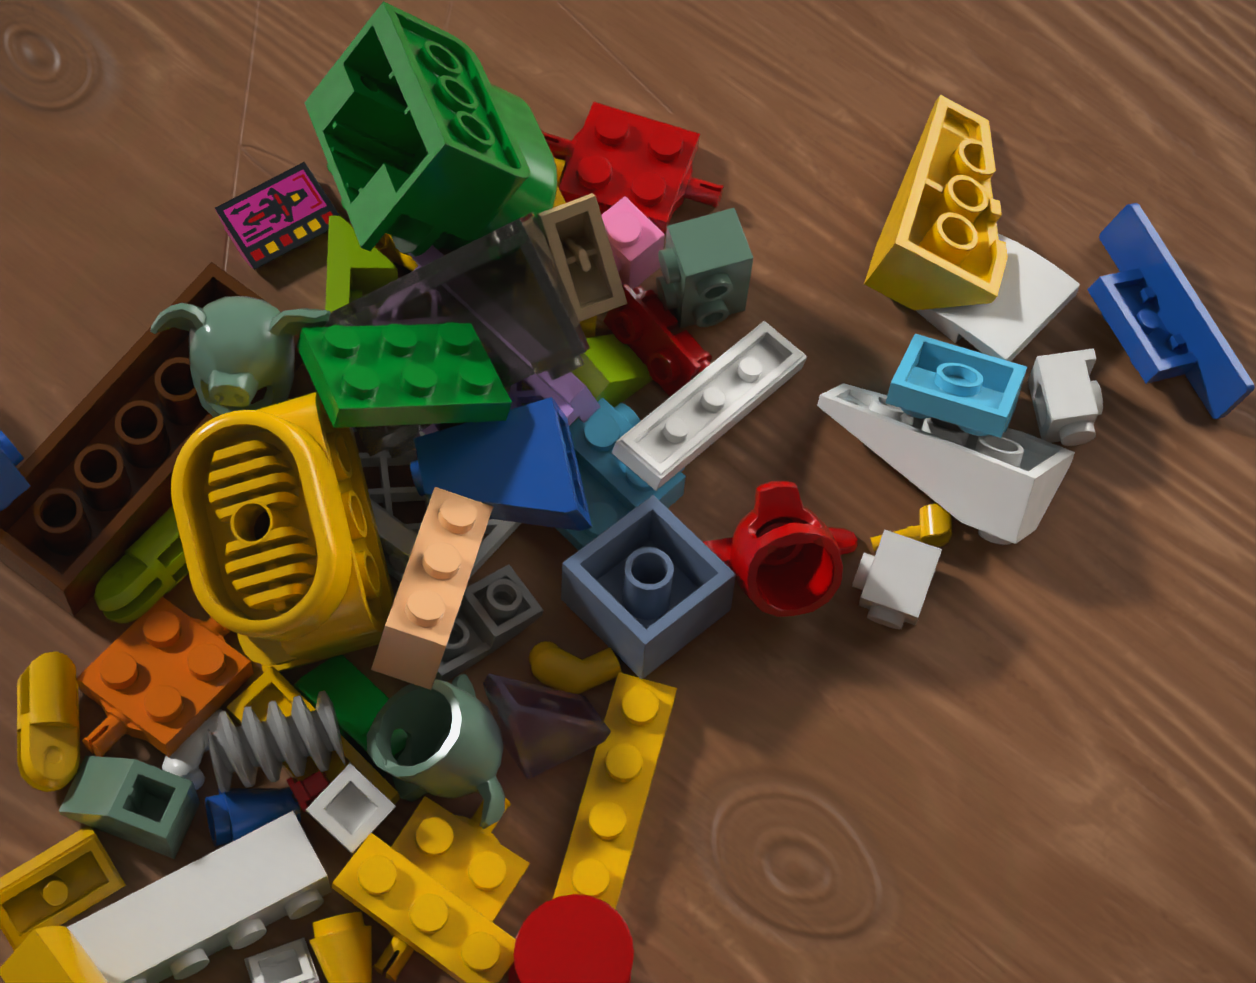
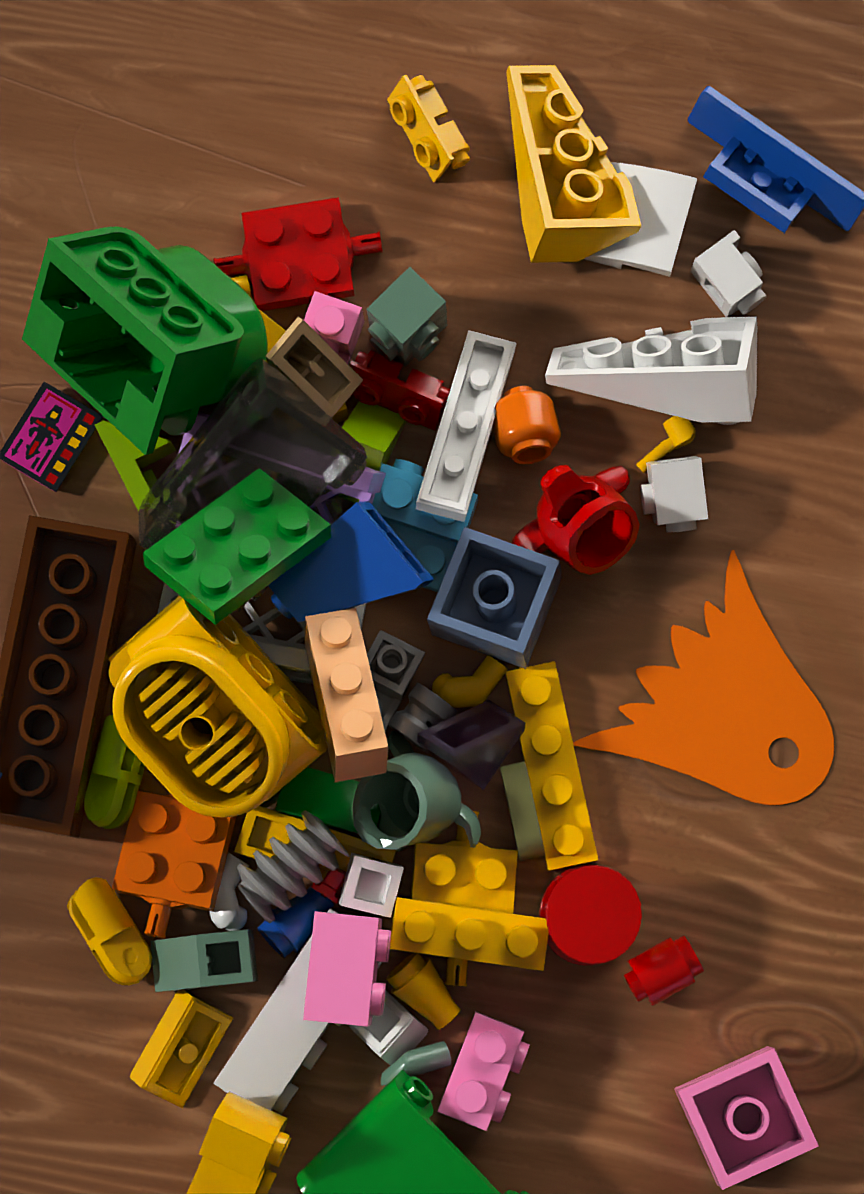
camera: 15 degrees left, 15 degrees up
(240, 348) = (101, 588): sand green piece -> none
(270, 866) = (345, 969): none -> bright pink brick
(511, 661) = (421, 713): none -> flat silver wheel
(556, 823) = (522, 811): none -> olive beam
(773, 437) = (526, 425): none -> orange head
(824, 91) = (415, 108): none -> yellow hinge
(839, 835) = (727, 707): none -> orange piece
(957, 386) = (647, 317): medium azure plate -> none

